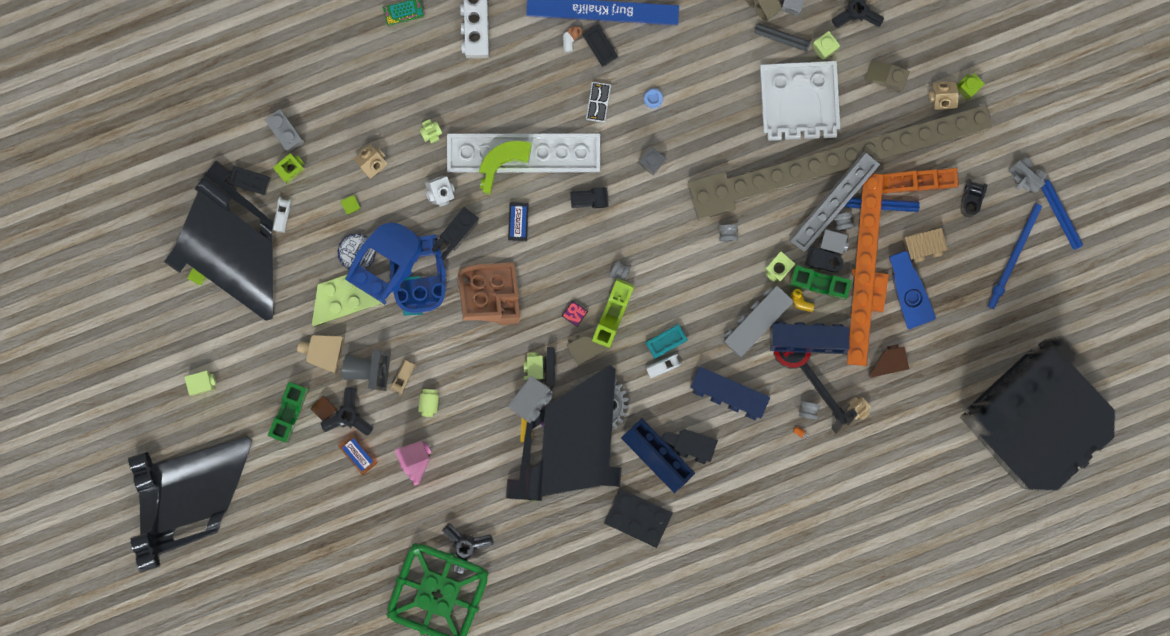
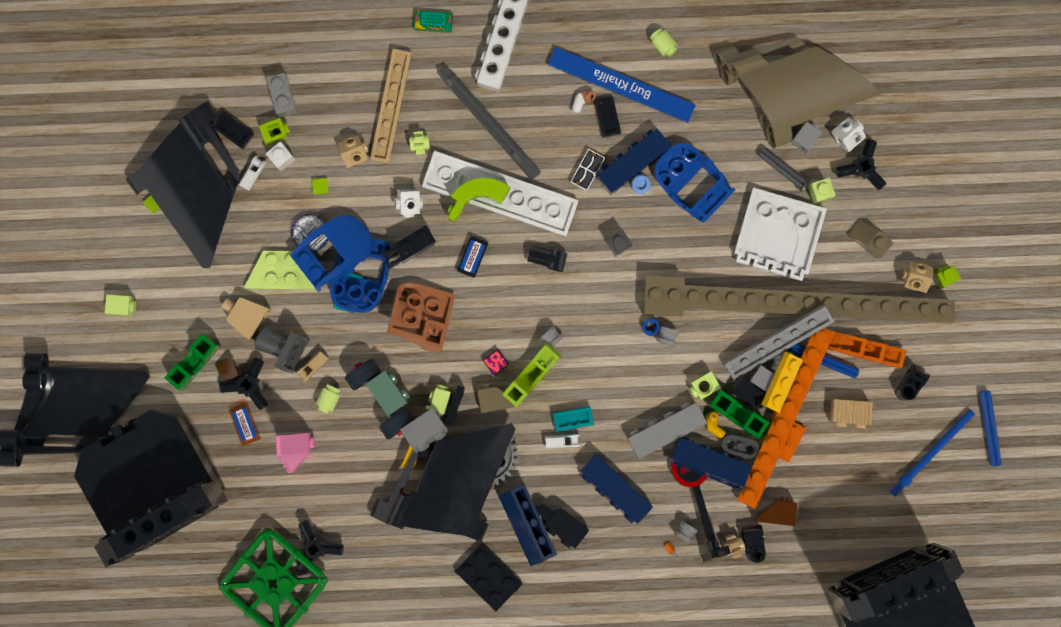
camera: 20 degrees right, 0 degrees up
(285, 539) = (146, 483): none -> black piece
(303, 189) = (280, 156): none -> white brick
(391, 106) = (391, 106): none -> tan plate
(482, 377) = (386, 392): none -> brick
(490, 90) = (489, 123): none -> dark grey piece
(639, 79) = (633, 162): none -> dark blue brick
(684, 69) = (678, 167): none -> blue slope
(709, 235) = (653, 321): none -> blue bush
(832, 312) = (740, 445): none -> dark grey plate
(850, 238) = (782, 382): none -> yellow plate
(875, 394) = (754, 539): none -> black piece
(910, 292) = (821, 452): blue piece -> none
(1026, 177) = (969, 381): light grey hips -> none

